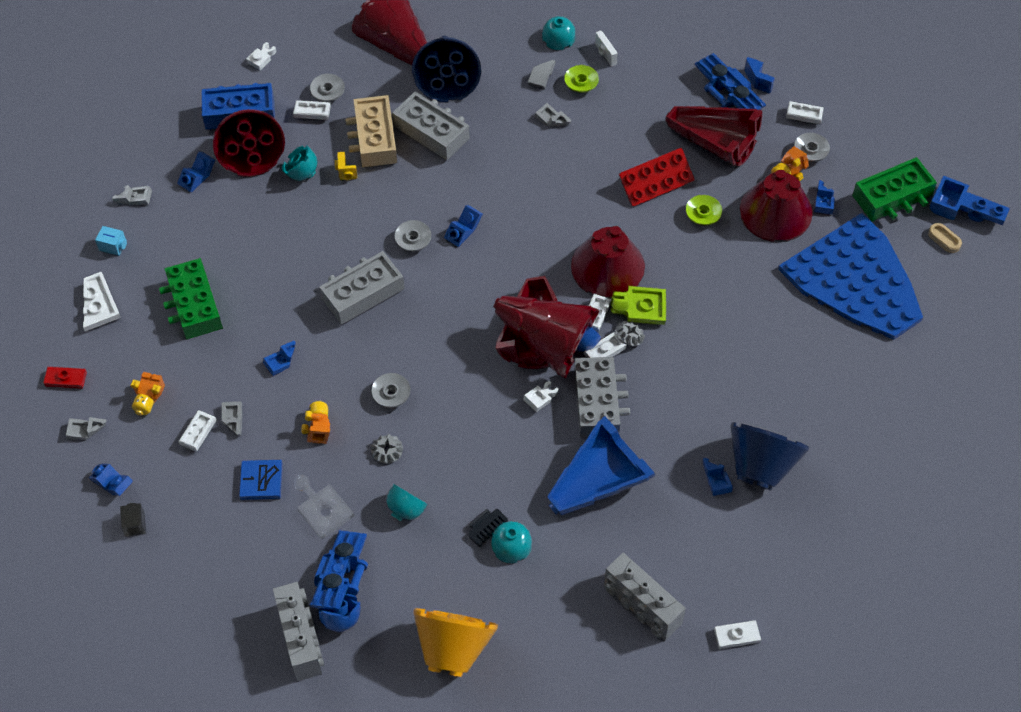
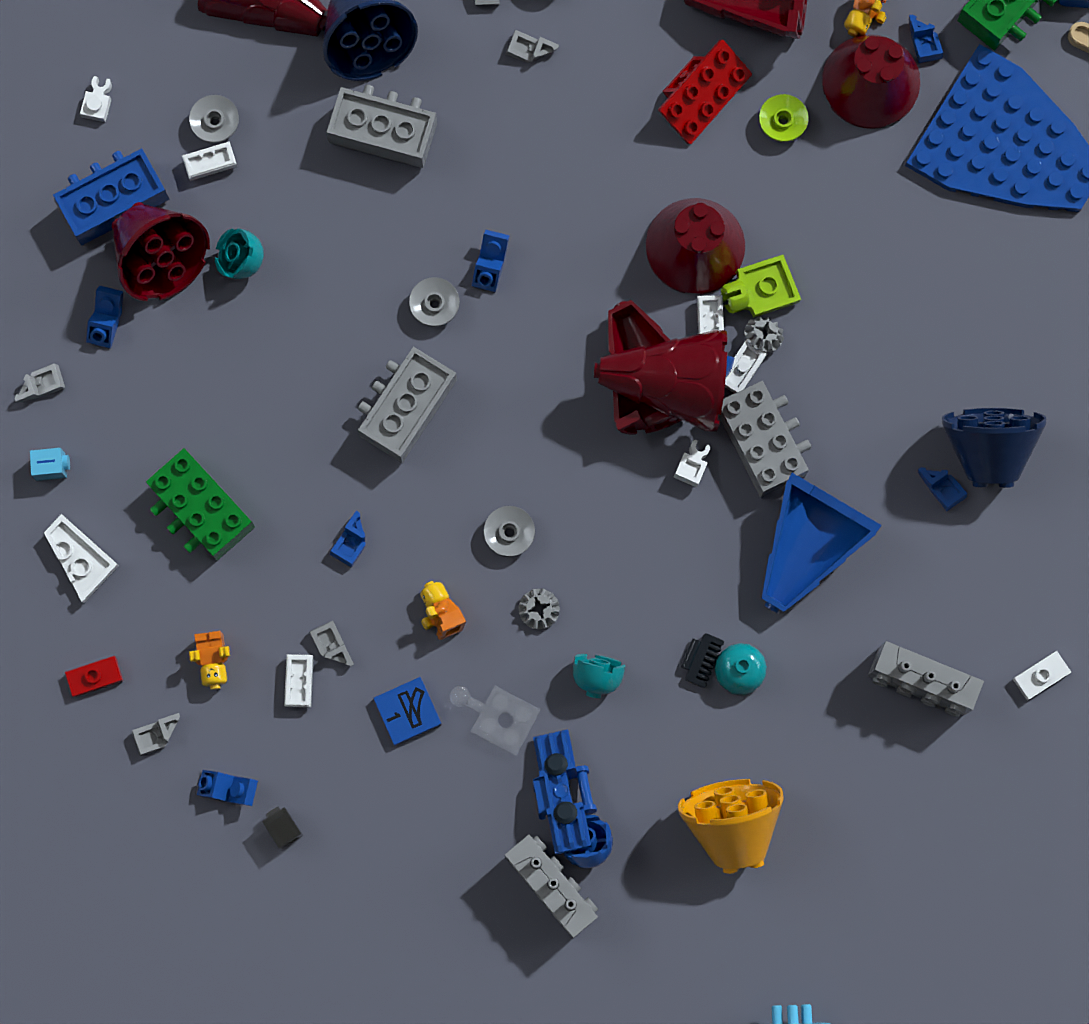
camera: 25 degrees left, 20 degrees up
(345, 172) = (291, 233): yellow bracket -> none
(373, 131) = (311, 165): tan piece -> none

